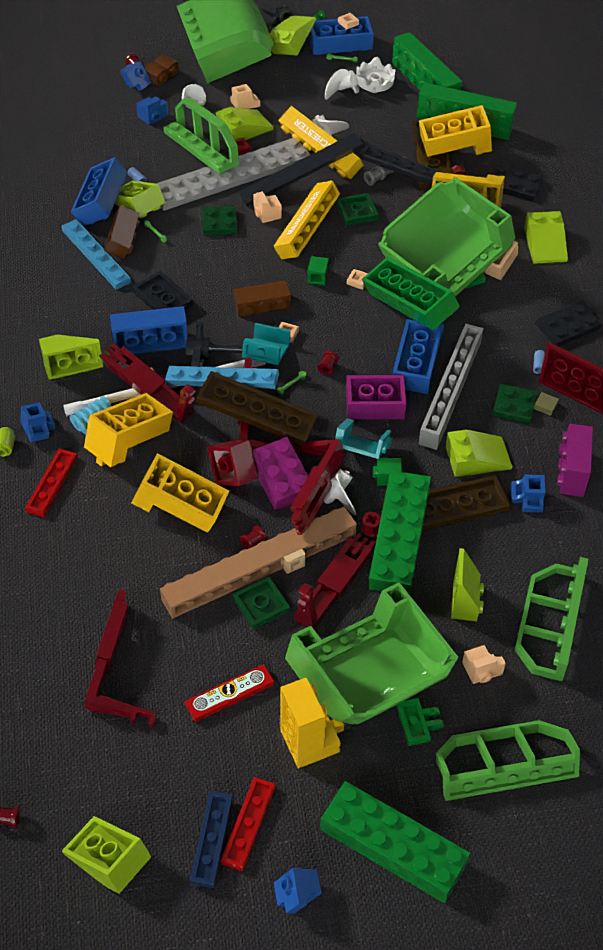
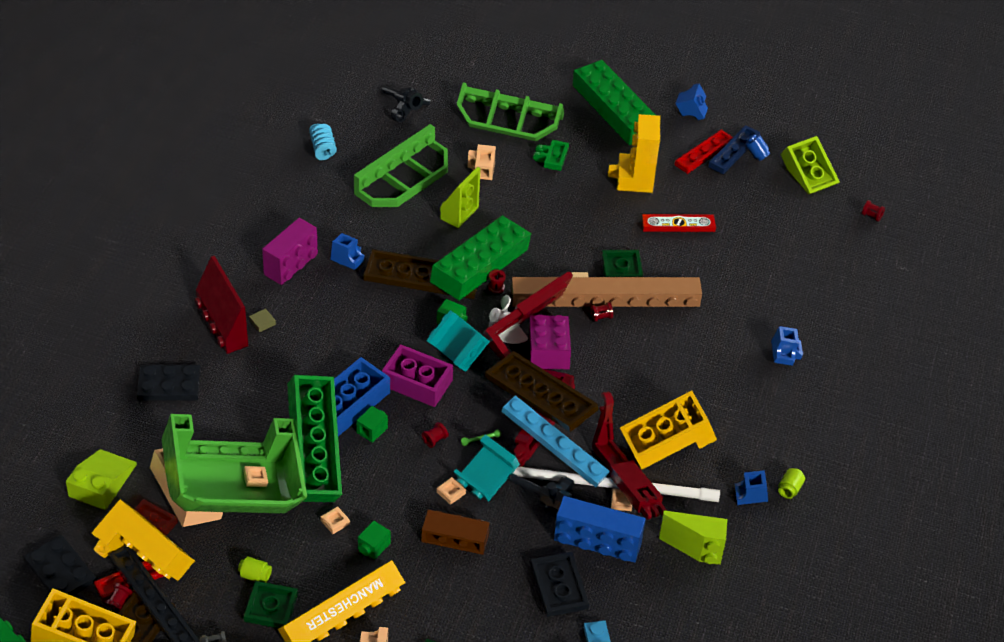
camera: 155 degrees left, 5 degrees down
(51, 483) = (757, 434): red tile -> none
(51, 576) = (786, 346): none -> blue brick
(81, 418) = (696, 468): medium azure piece -> none
(103, 662) = (764, 271): dark red hinge -> none
(180, 493) = (653, 352): yellow hinge -> none
(182, 846) = (757, 147): none -> blue brick
(232, 462) = (589, 356): dark red slope -> none
(333, 581) = (558, 257): dark red hinge -> none
(373, 660) = (569, 176): bright green slope -> none
(381, 221) = (254, 569): none -> lime brick
(383, 349) = (372, 424): none -> green brick
(436, 261) = (255, 476): none -> light nougat tile
(450, 387) = (343, 353): light grey brick -> none
(476, 453) = (363, 301): lime slope -> none
(514, 403) = (289, 332): dark green plate -> none
(538, 361) = (231, 358): medium blue piece -> none

